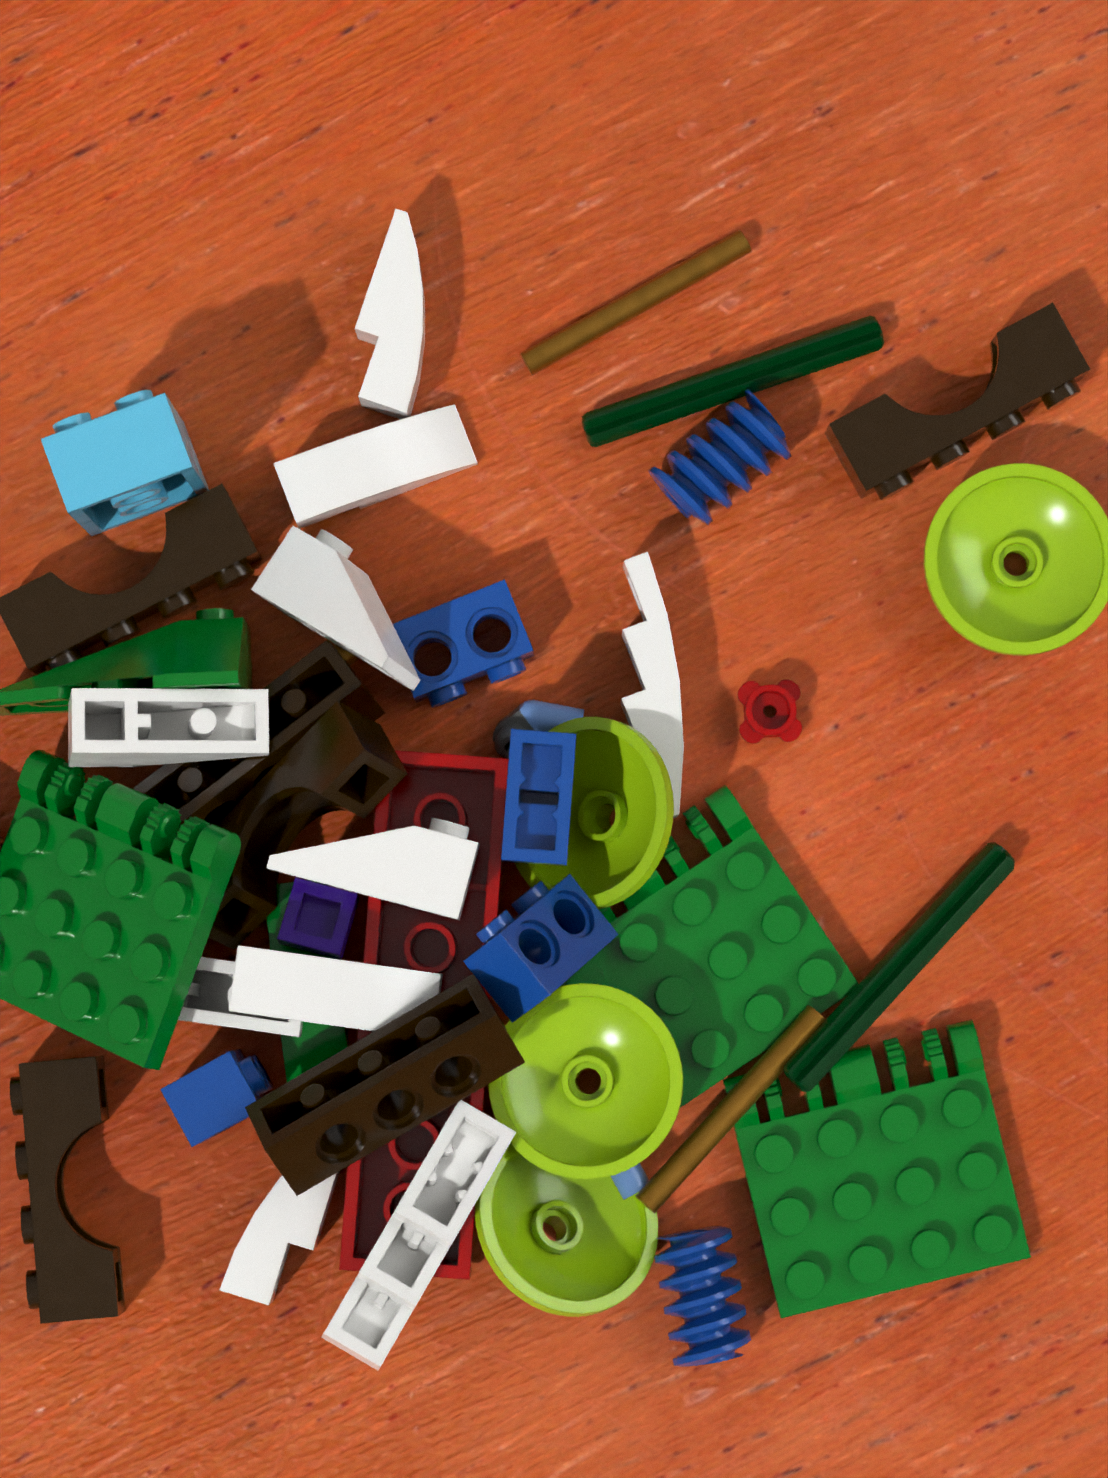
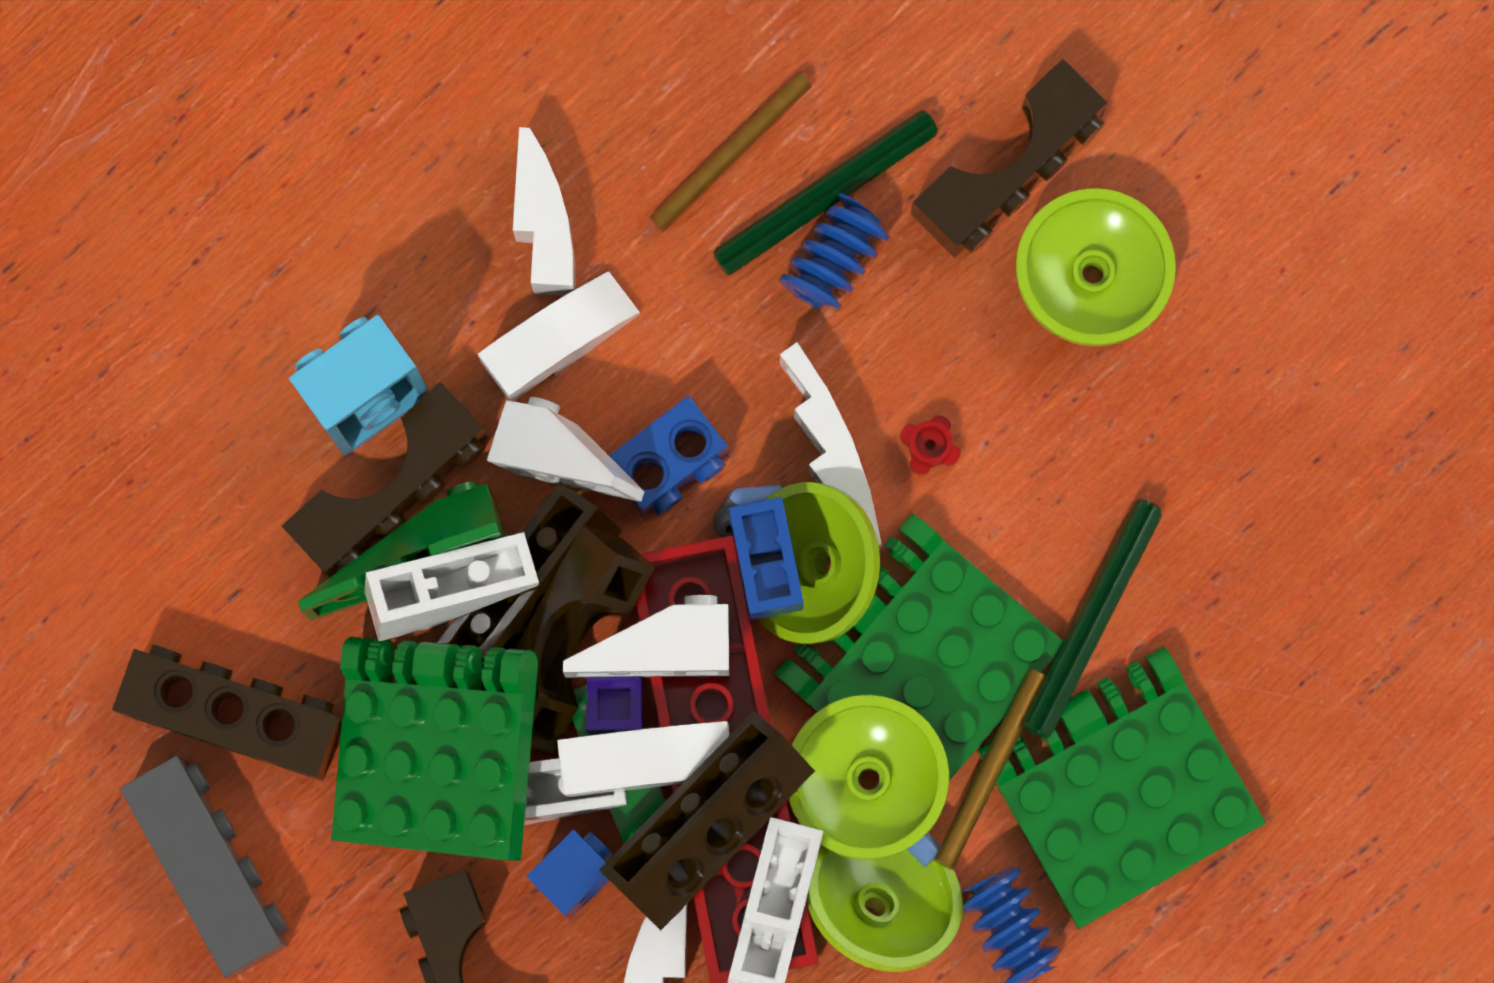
camera: 15 degrees left, 5 degrees down
(540, 947) = (800, 676): blue brick -> none

